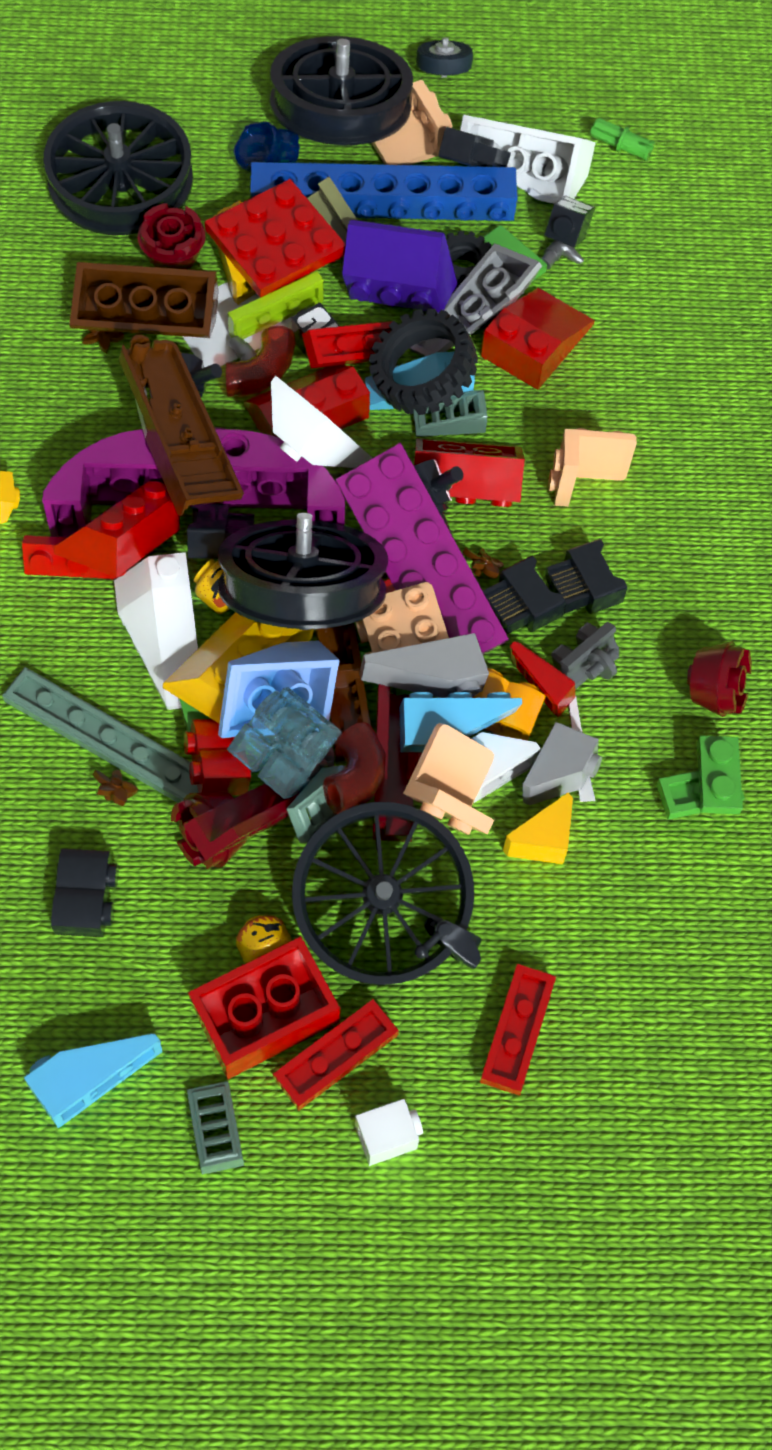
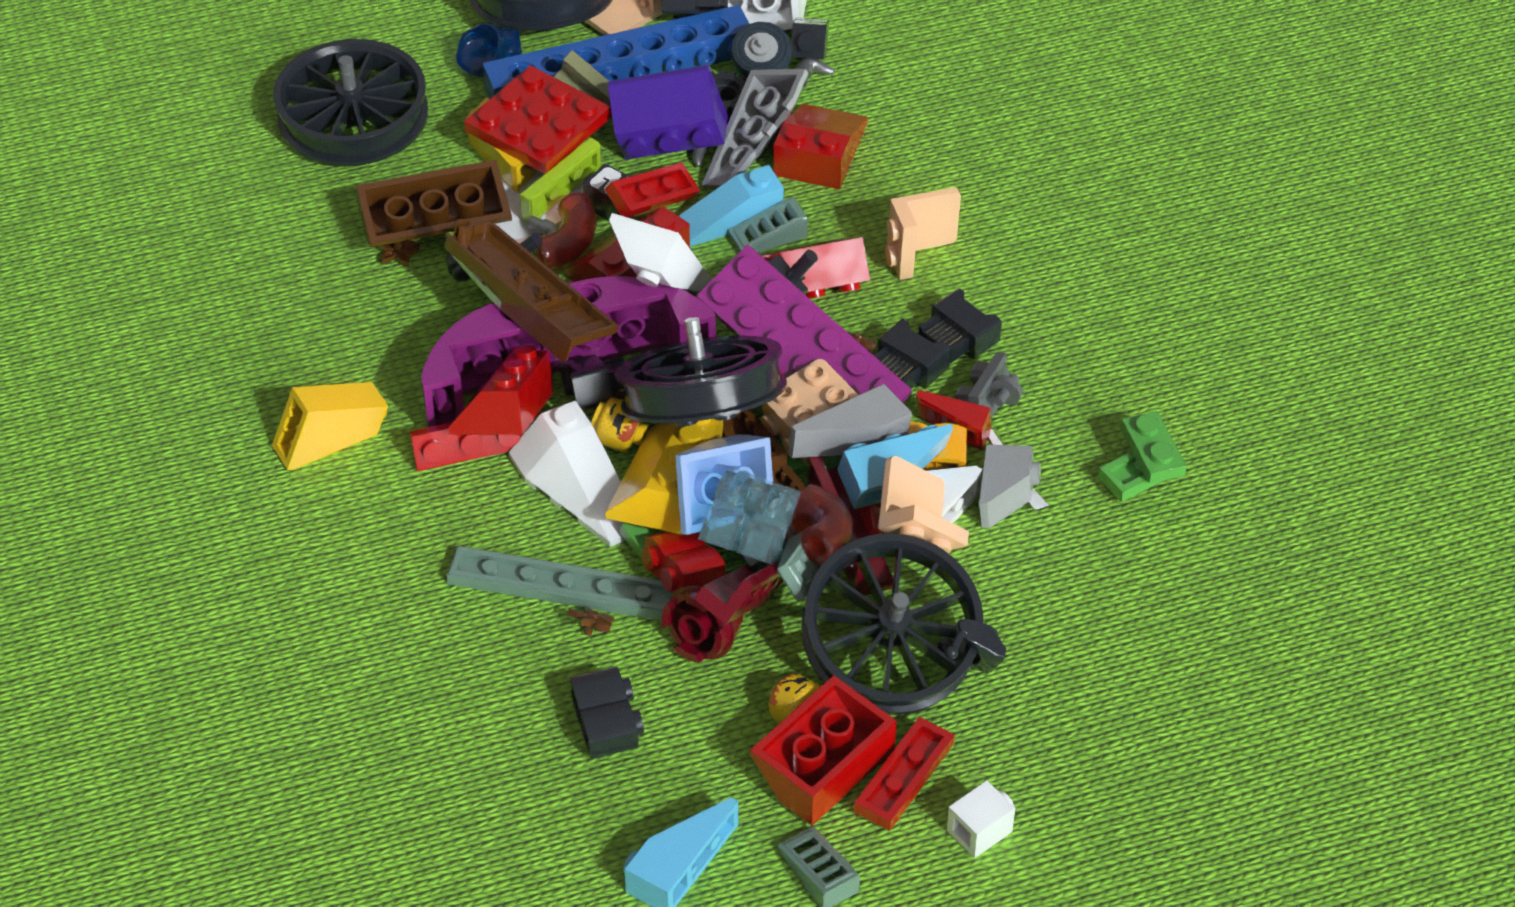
camera: 15 degrees left, 15 degrees down
(171, 237) = (433, 143): dark red cone -> none
(405, 336) = (744, 210): black tyre -> none
(516, 222) = (760, 48): none -> black wheel
(518, 1029) = (1062, 704): red plate -> none
(544, 835) = (1015, 544): yellow slope -> none
(719, 678) = (1118, 370): dark red cone -> none

